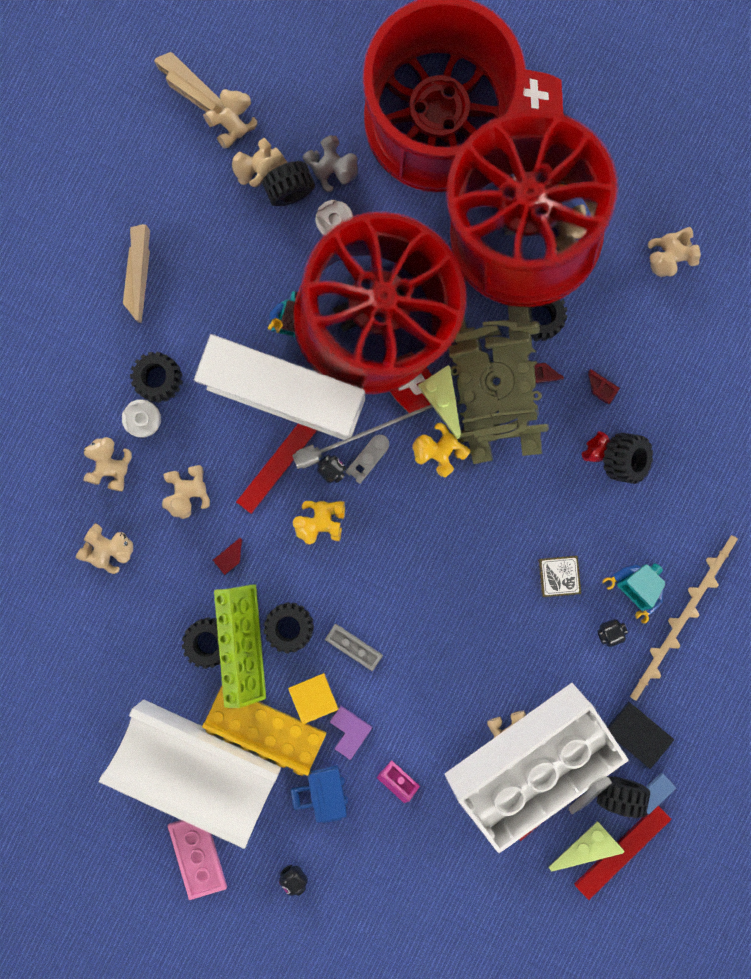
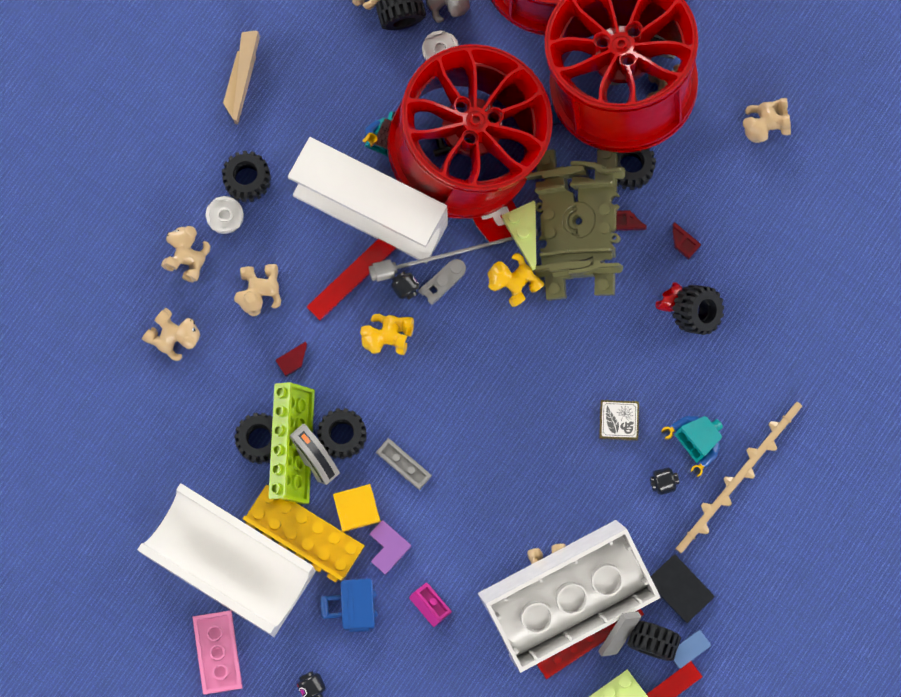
camera: 15 degrees right, 10 degrees down
(264, 654) = (314, 455): none -> light grey slope

